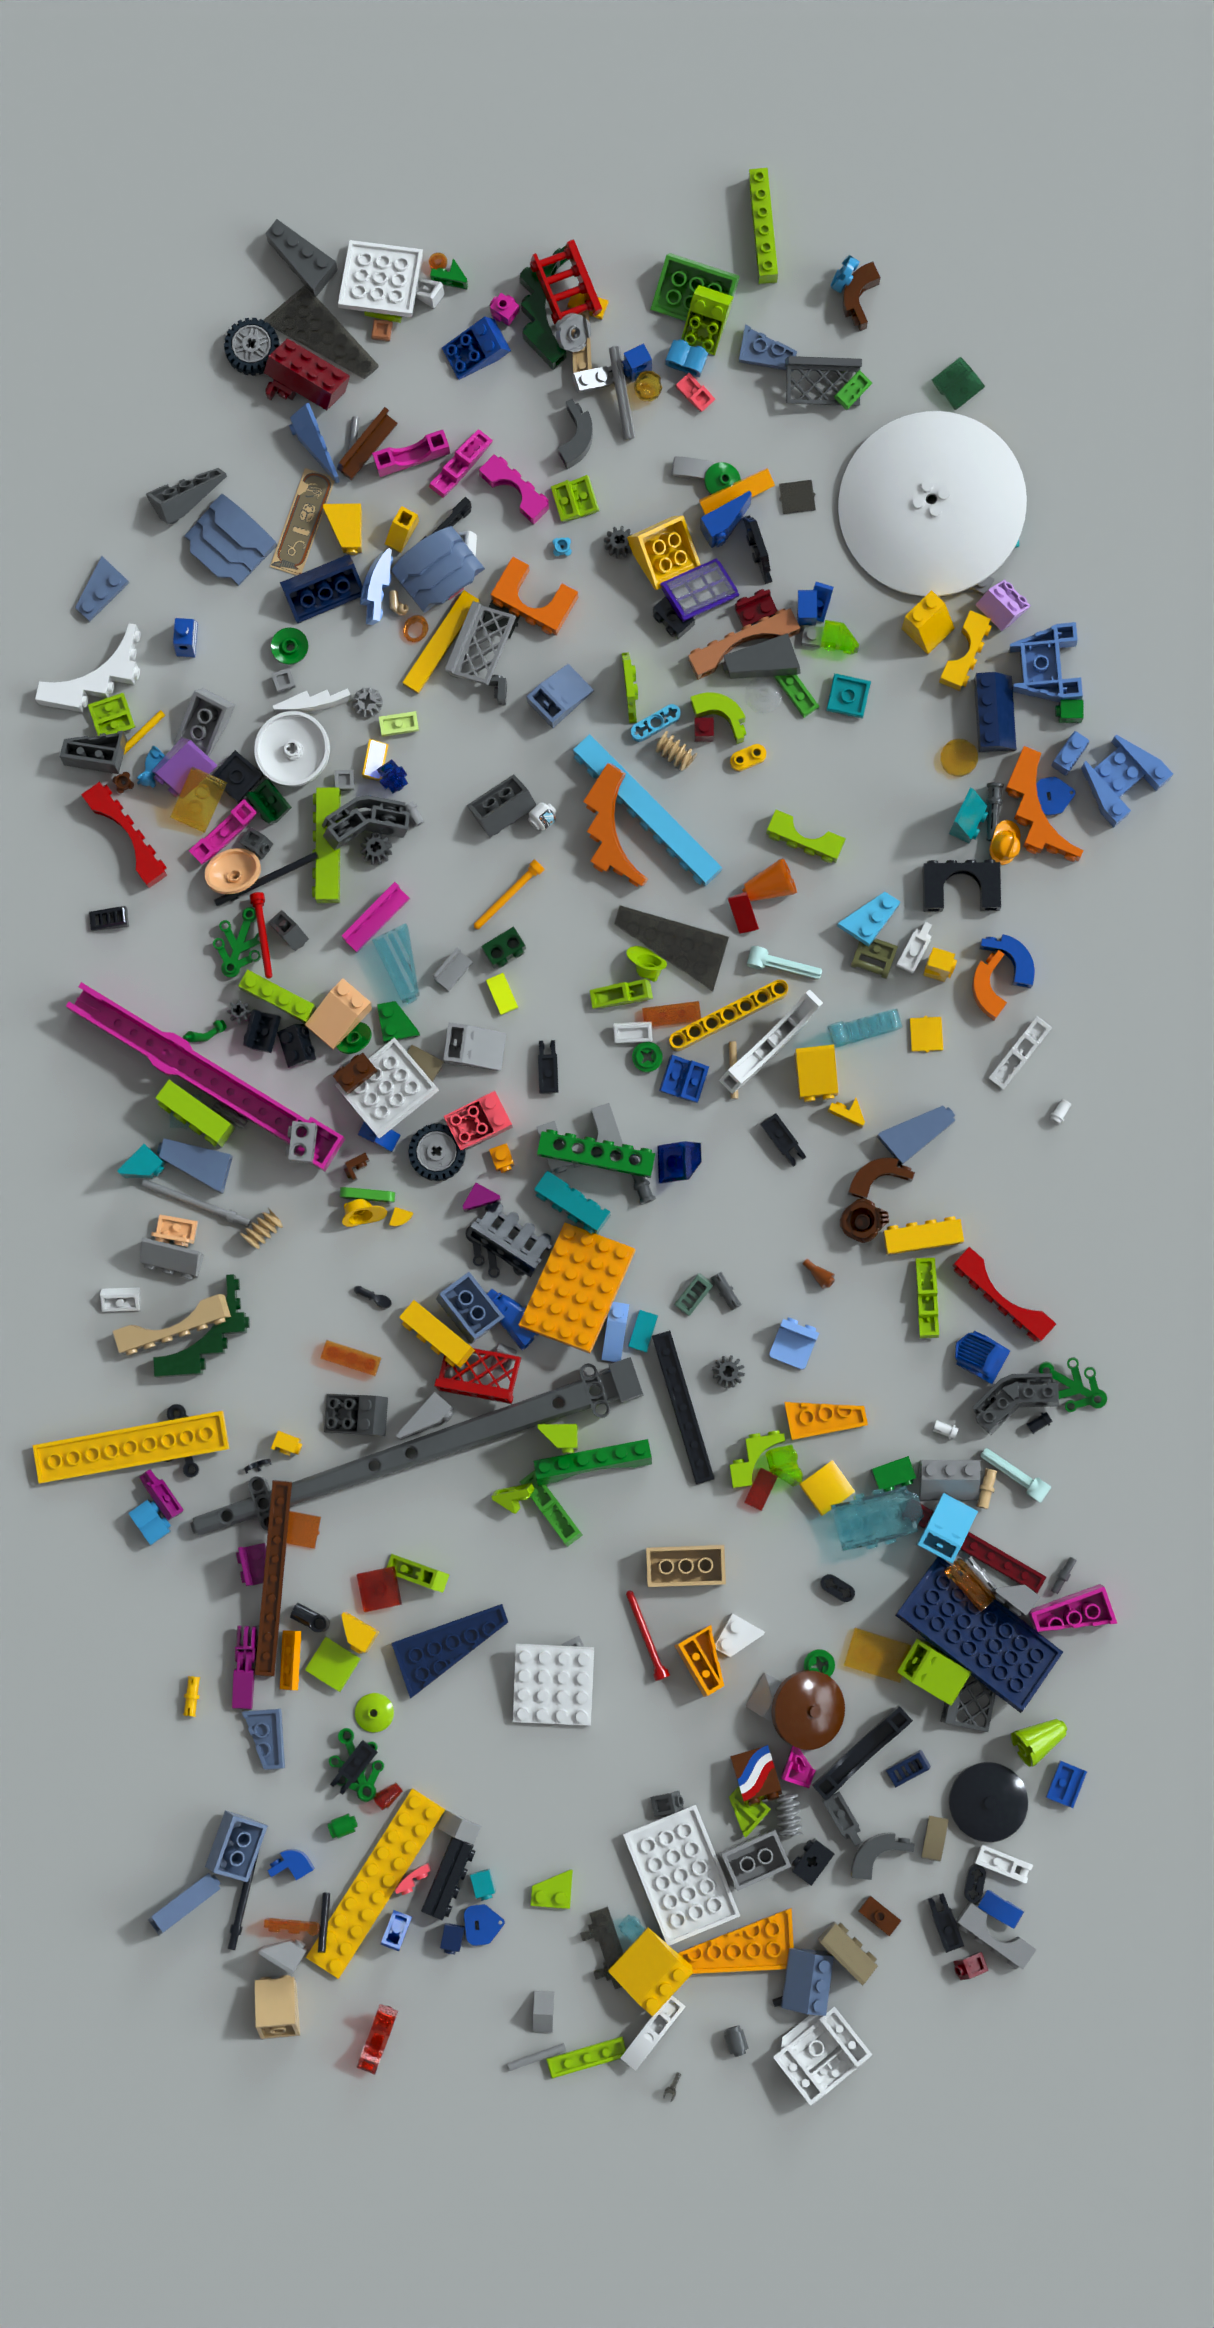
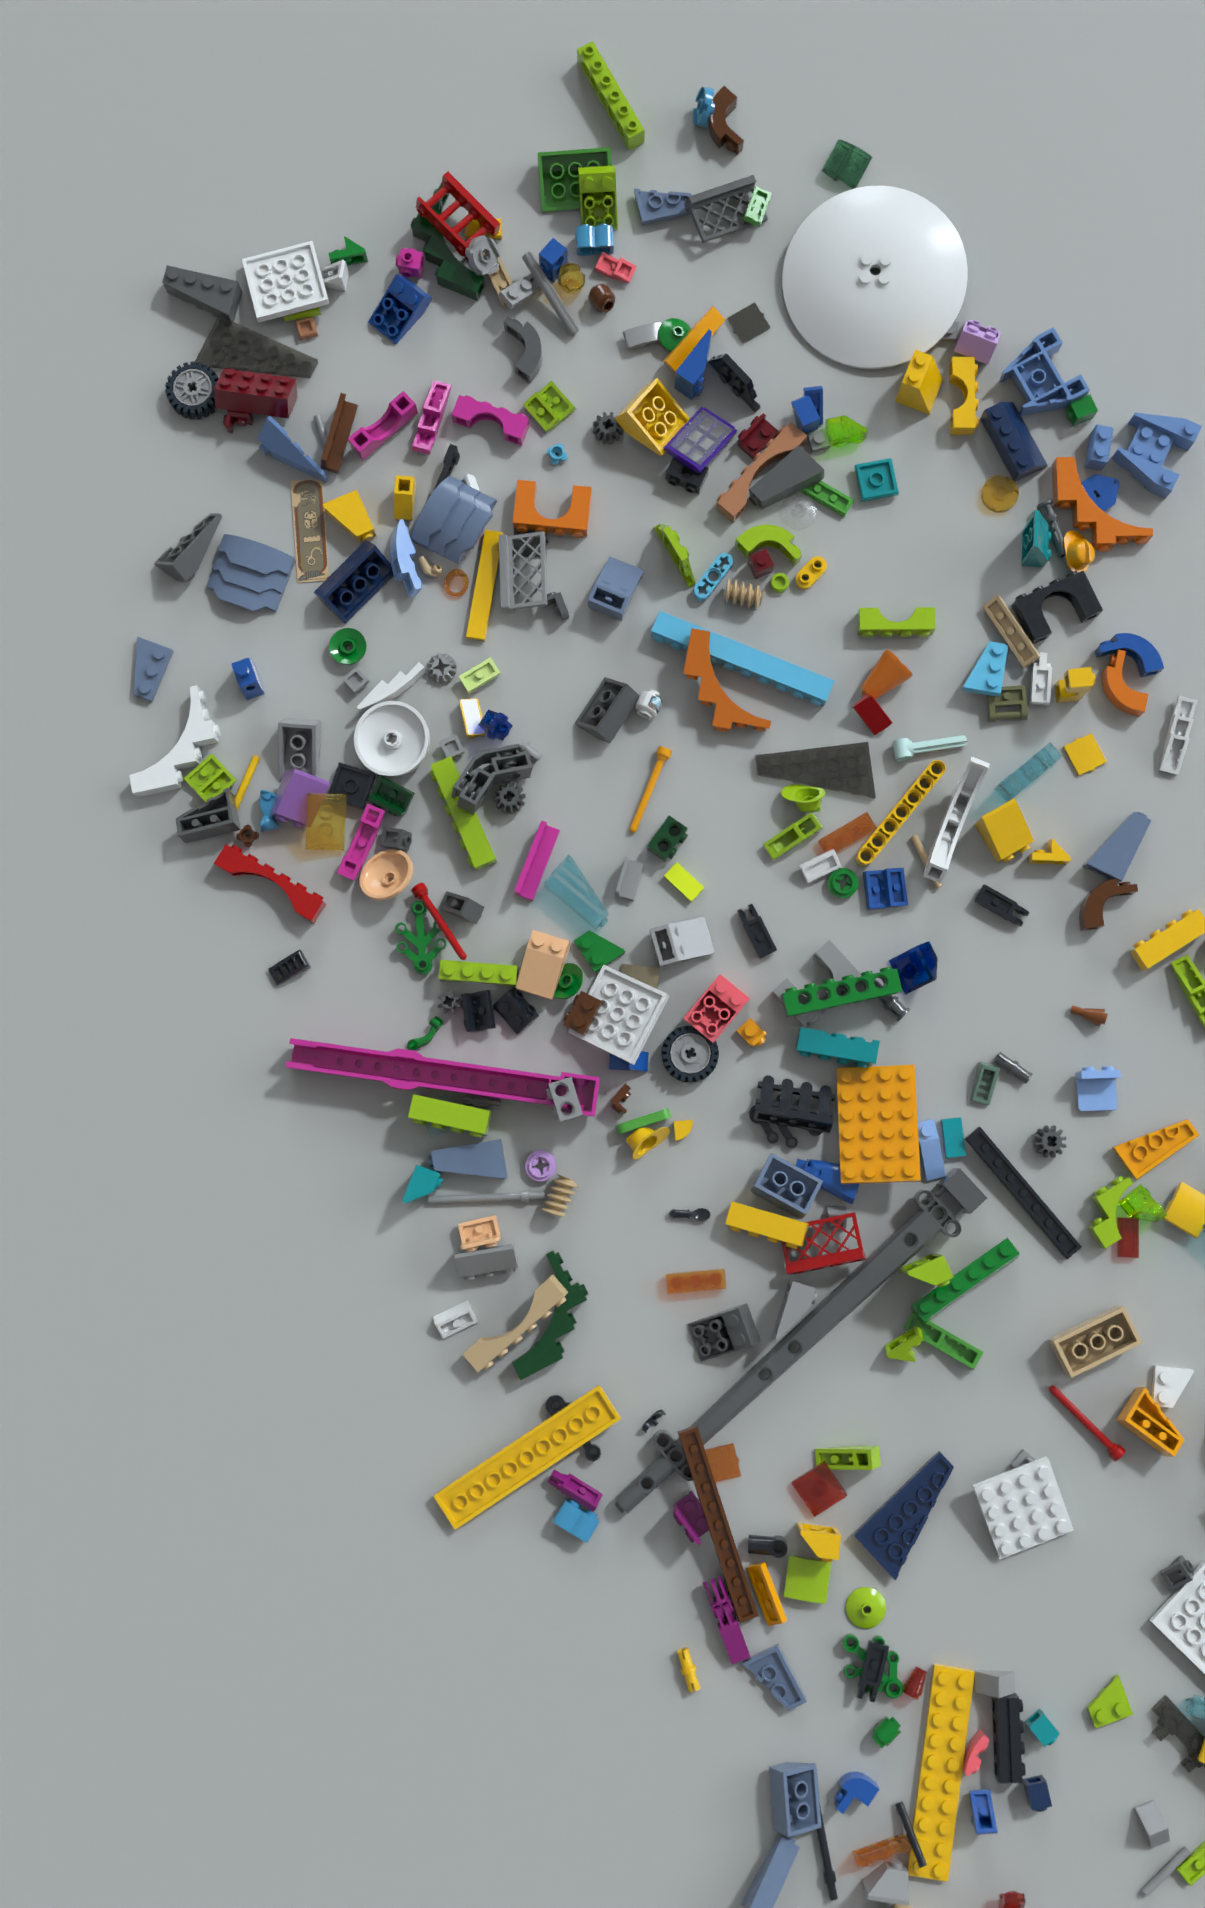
camera: 25 degrees left, 0 degrees up
(252, 1187) = (532, 1160): none -> lavender gear
(269, 877) = (423, 865): black bar -> none
(287, 1443) = (672, 1388): yellow brick -> none
(442, 264) = (330, 241): clear orange plate -> none
(480, 1197) = (748, 1078): magenta slope -> none
(488, 1924) = (1063, 1763): blue piece -> none
(668, 416) = (601, 298): none -> reddish brown head
(715, 754) = (779, 582): none -> lime tile
(863, 1220) = (1110, 948): reddish brown helmet -> none
(908, 890) = (1011, 631): none -> tan plate

